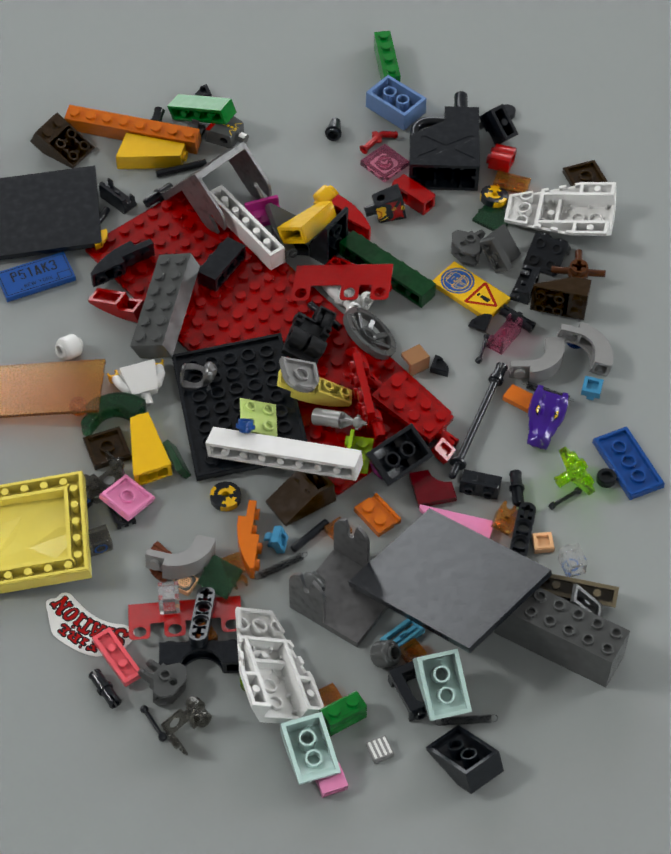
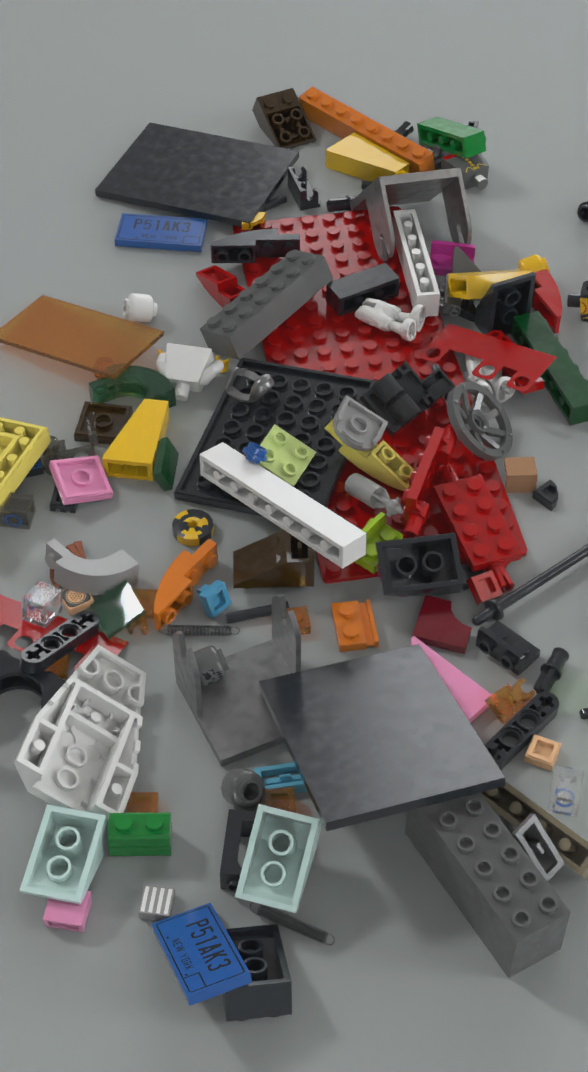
camera: 30 degrees right, 5 degrees down
(250, 278) = (390, 318): none -> white piece
(433, 763) = (201, 954): none -> blue tile

